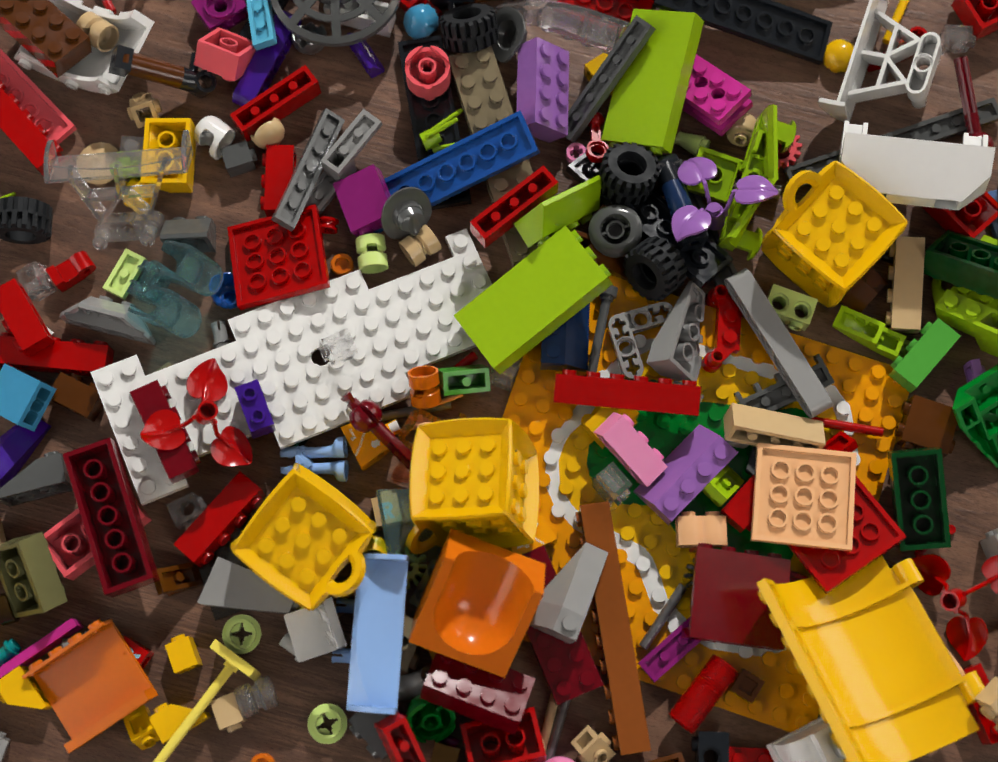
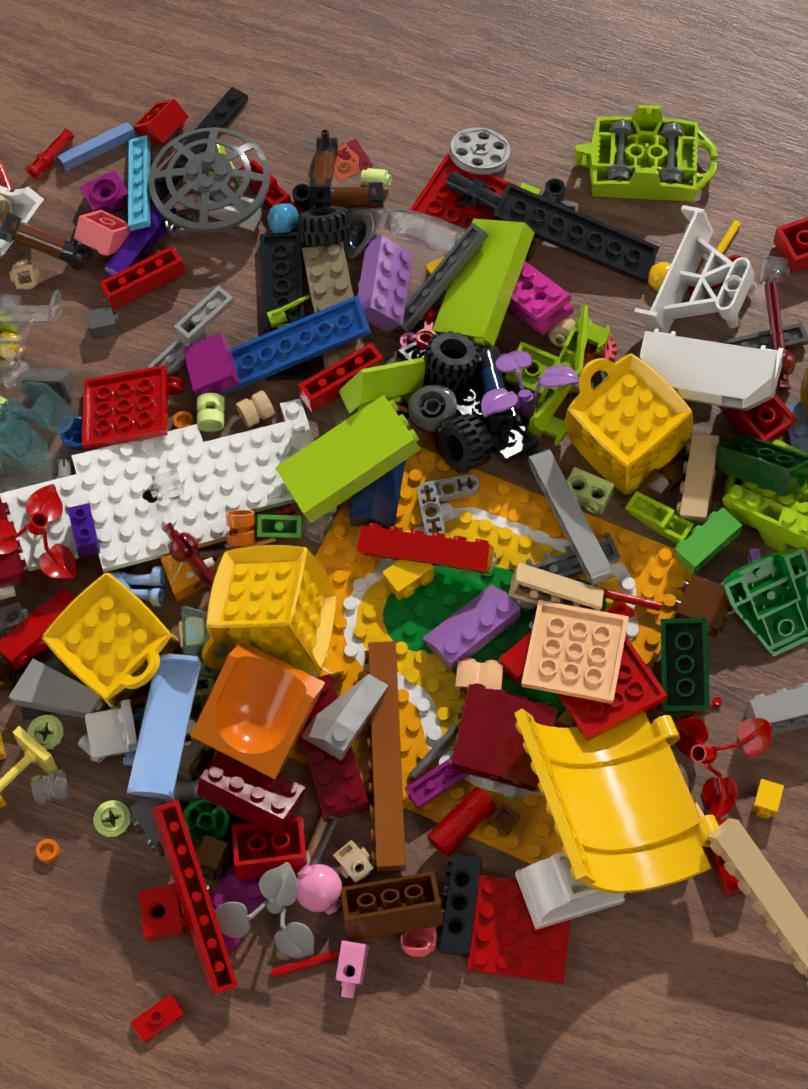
camera: 10 degrees right, 10 degrees down
(168, 134) = (40, 293): yellow slope -> none
(214, 133) = (83, 299): white helmet -> none
(227, 713) = (22, 799): tan brick -> none
(269, 134) = (132, 303): tan hair -> none
(279, 166) = (137, 341): red brick -> none
(307, 170) = (161, 336): dark grey plate -> none
(367, 58) = (231, 246): dark purple slope -> none
(405, 212) = (244, 377): dark grey hat -> none
(427, 72) = (281, 260): coral brick -> none
(606, 298) = (420, 464): dark grey piece -> none
(612, 485) = (400, 627): clear brick -> none
(631, 448) = (422, 597): bright pink brick -> none
(677, 343) = (481, 508): light grey wedge -> none
(691, 142) = (514, 339): yellowish green cone -> none
(723, 486) = (503, 639): lime slope -> none
(726, 328) = (526, 504): red plate -> none

